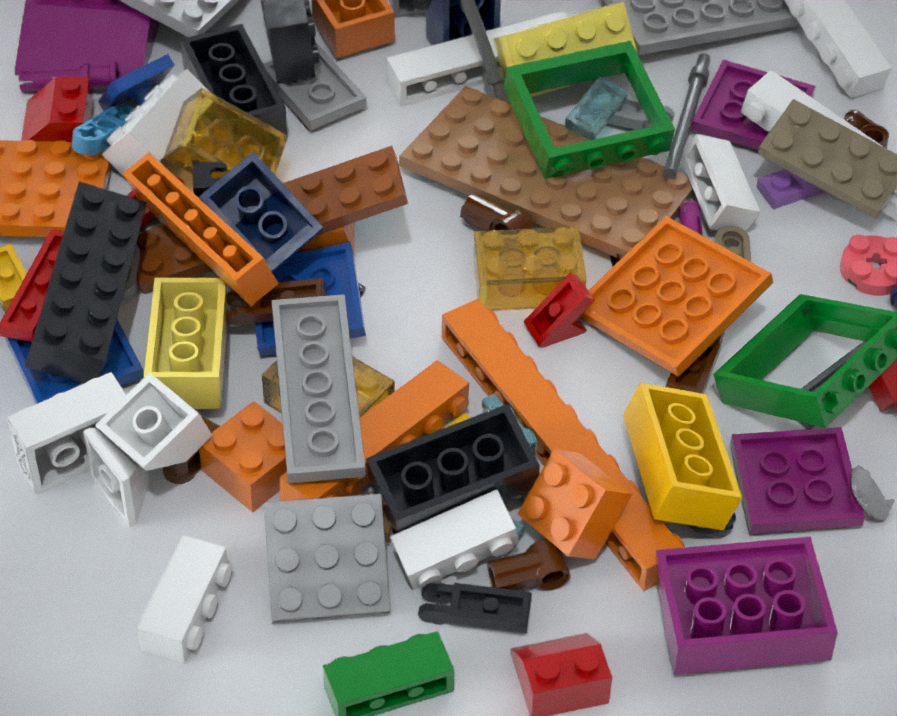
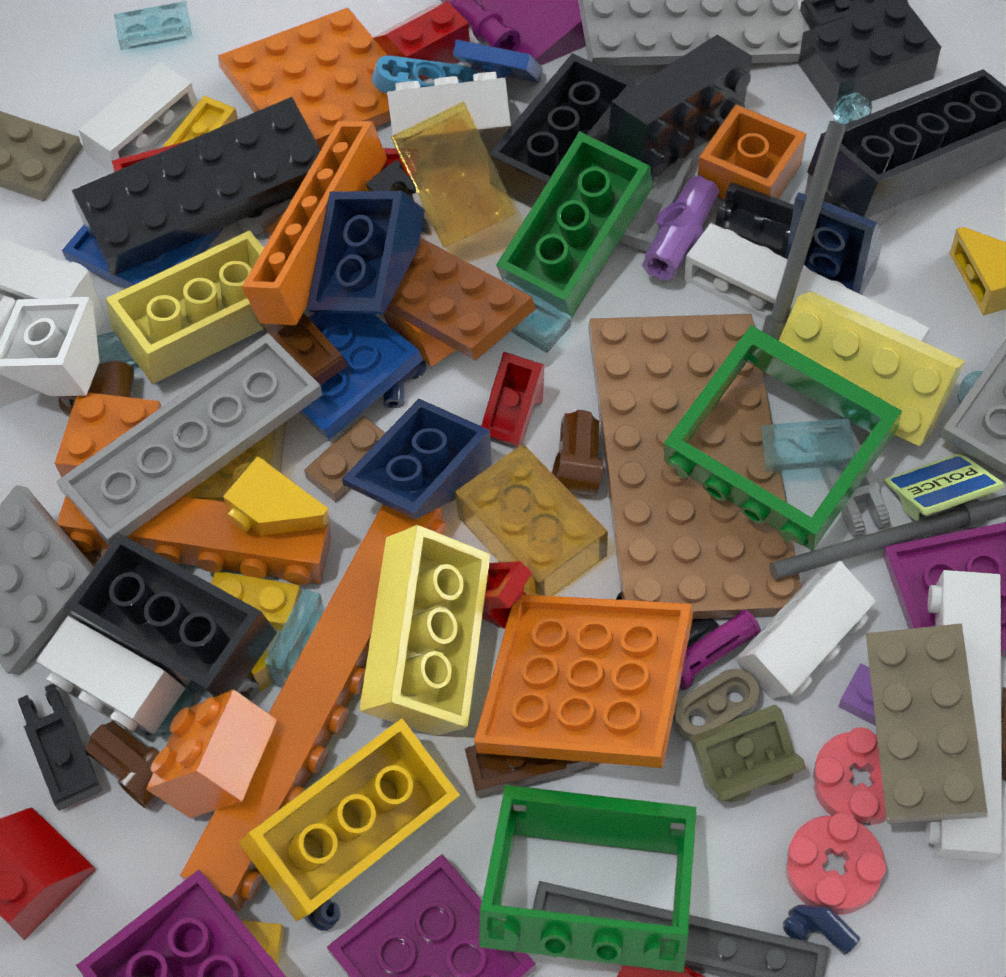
camera: 60 degrees right, 10 degrees up
(323, 107) = (576, 223): none -> green brick
(369, 77) = (680, 228): none -> medium lavender piece
(384, 340) = (341, 457): none -> medium nougat plate
(397, 38) = (756, 218): none -> black hinge
(409, 369) = (272, 503): none -> yellow slope
(426, 225) = (512, 398): none -> red slope
(440, 284) = (422, 460): none -> dark blue slope
(573, 348) = (425, 631): none -> light yellow brick
(675, 72) = (942, 485): none -> piece
(782, 257) = (746, 755): none -> olive bracket
(826, 207) = (834, 773): none -> coral plate

